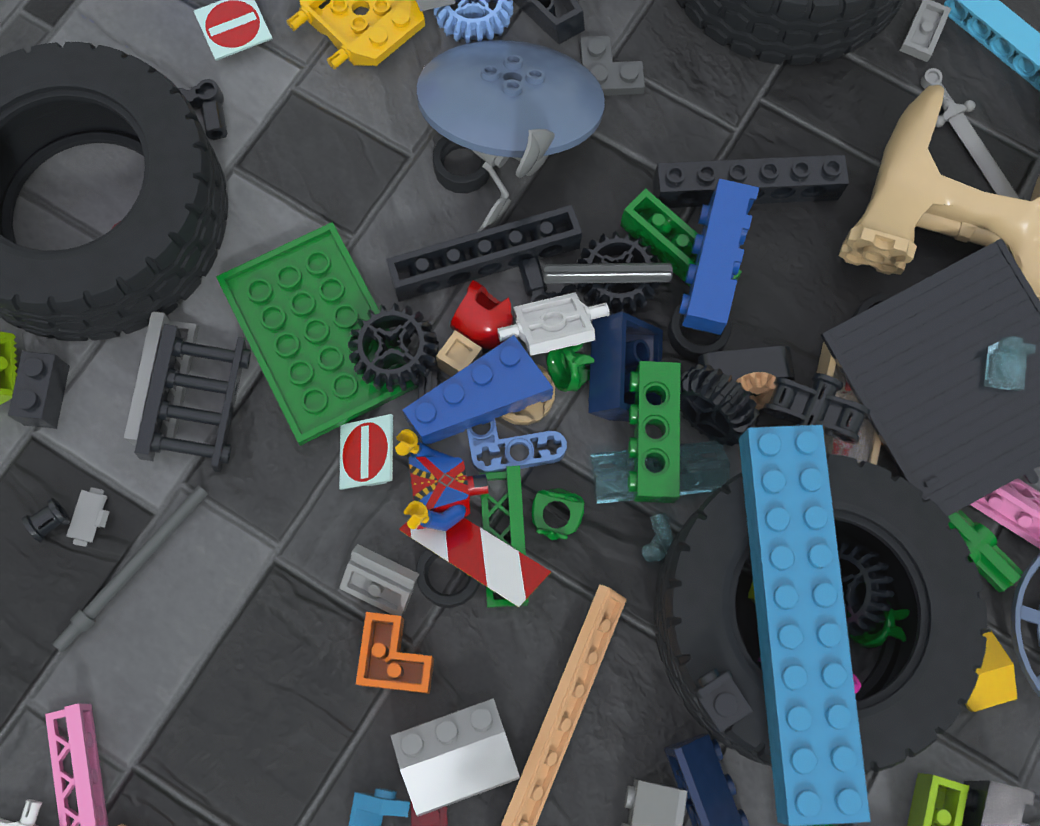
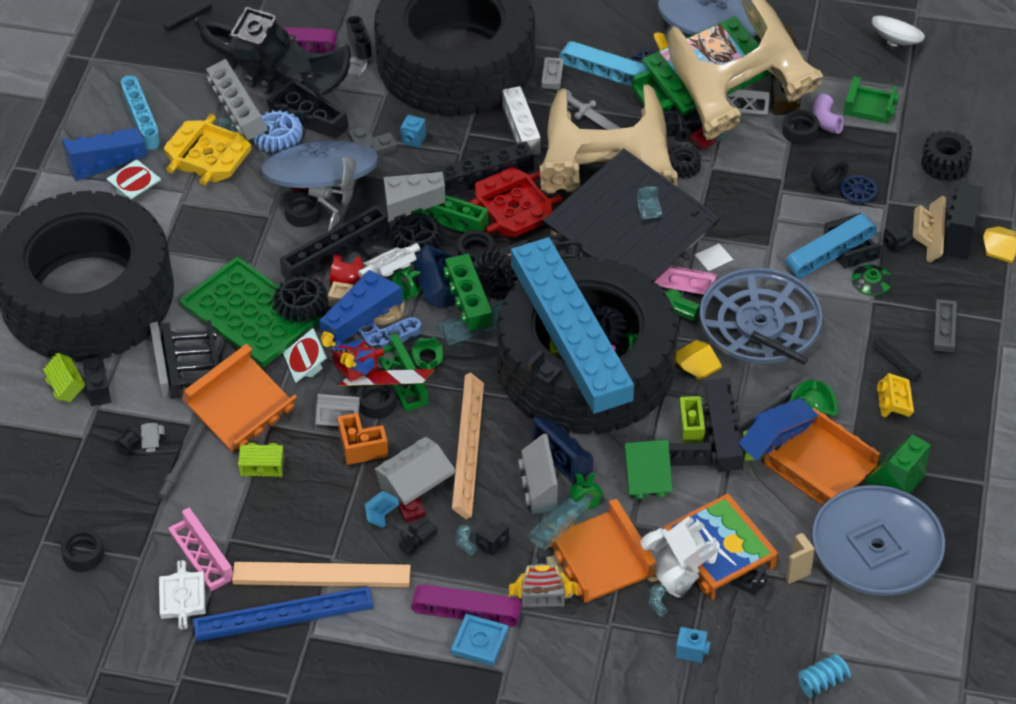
camera: 15 degrees left, 25 degrees down
(229, 634) = (261, 460): none -> lime brick
(234, 511) = (237, 399): none -> orange panel
(608, 273) = (411, 231): dark grey axle -> none
(631, 208) = (413, 192): none -> light grey wedge
(661, 541) = (492, 352): clear light blue arm -> none
(677, 71) = (413, 131): none -> dark azure brick
(718, 256) = (470, 199): blue wedge -> none
(815, 281) = (529, 199): none -> red piece
(849, 105) = (521, 119): none -> white brick

